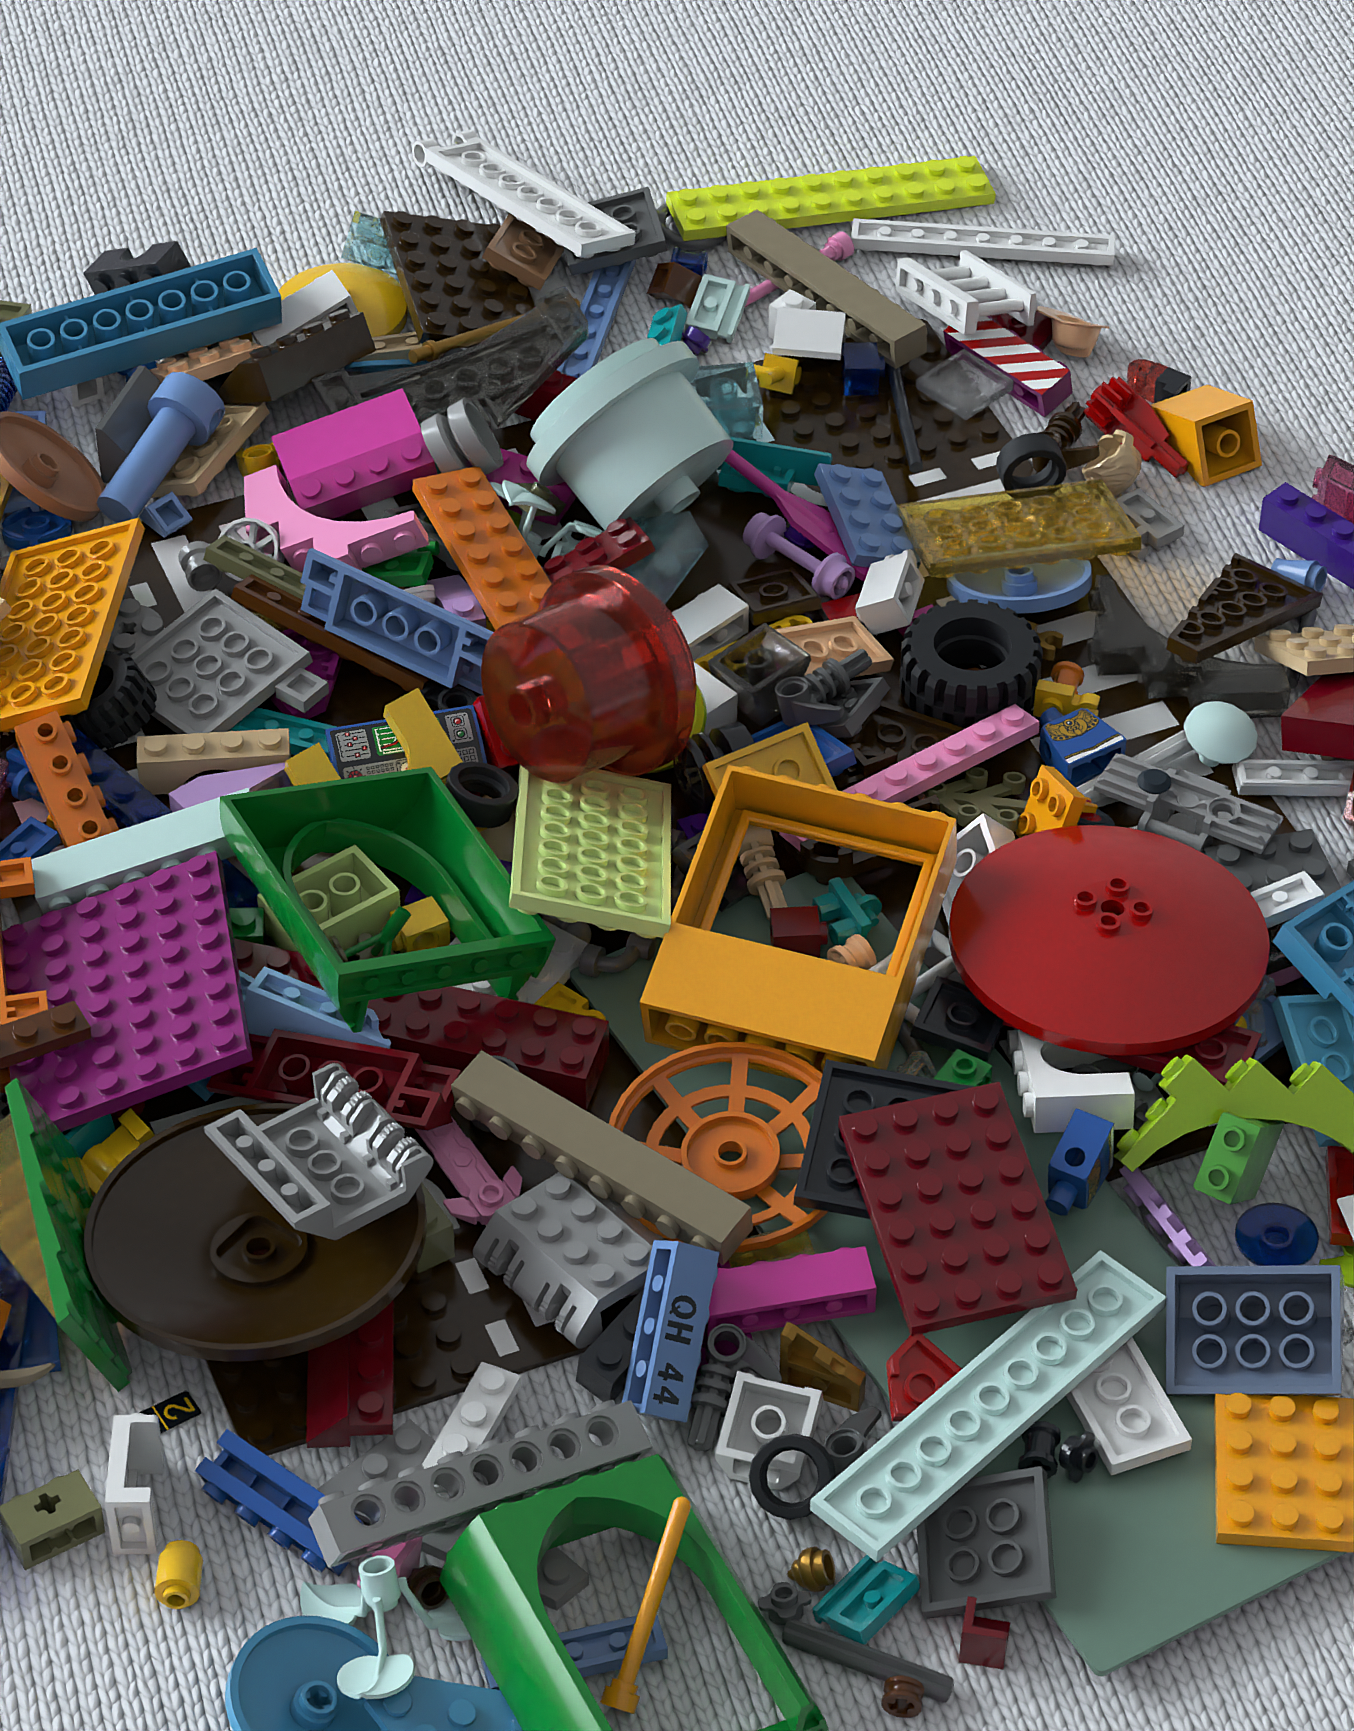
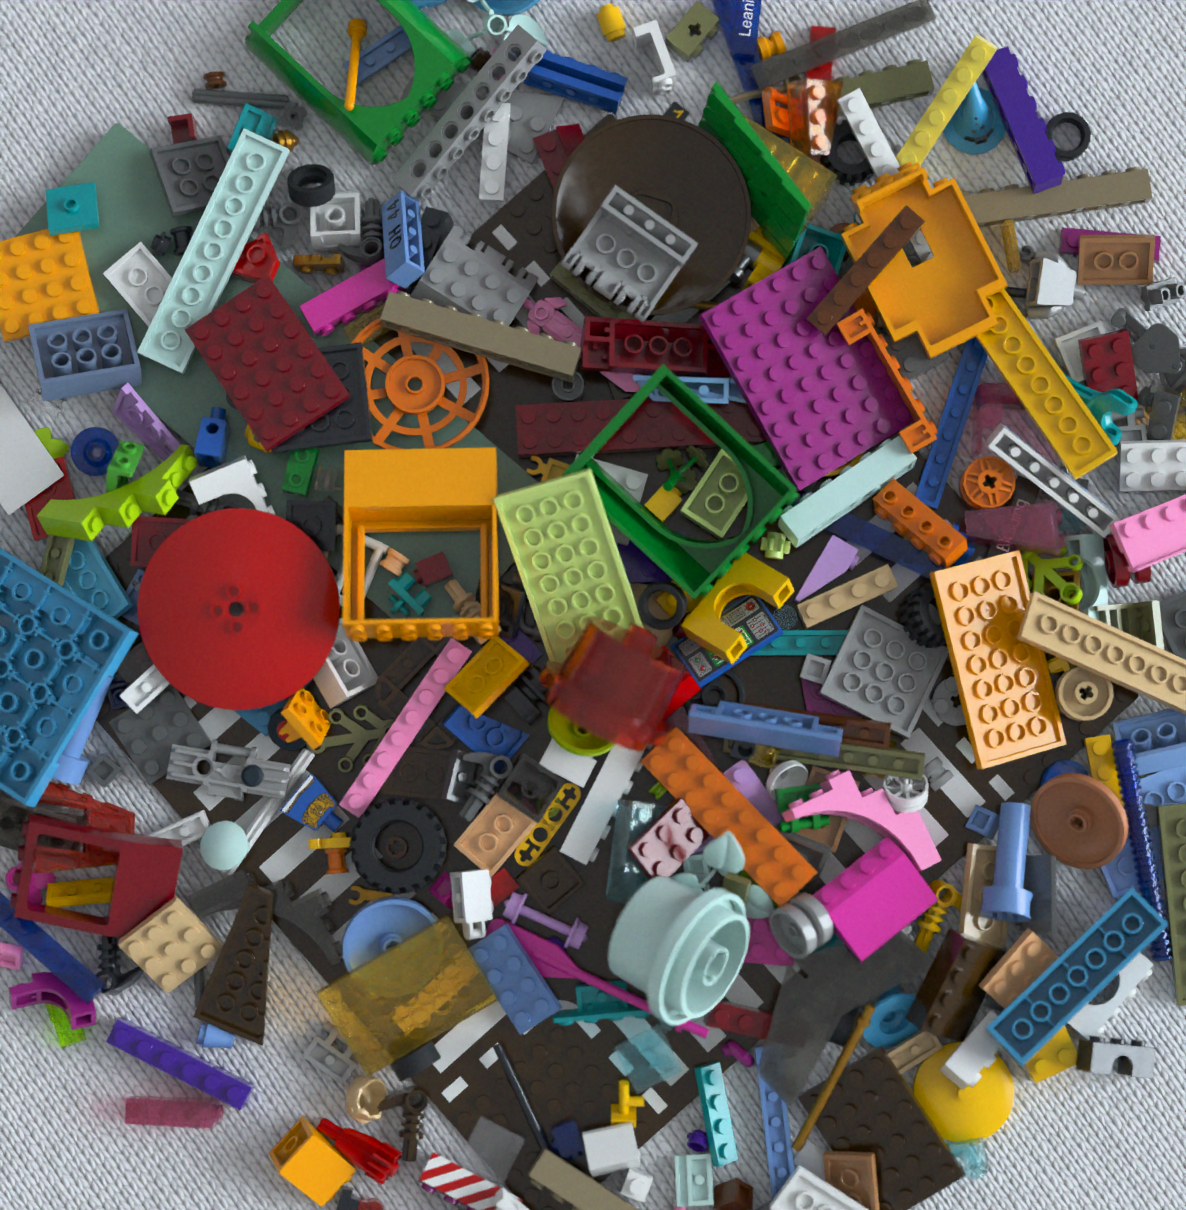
camera: 165 degrees right, 40 degrees up
(1217, 1547) = (72, 208): none -> teal plate

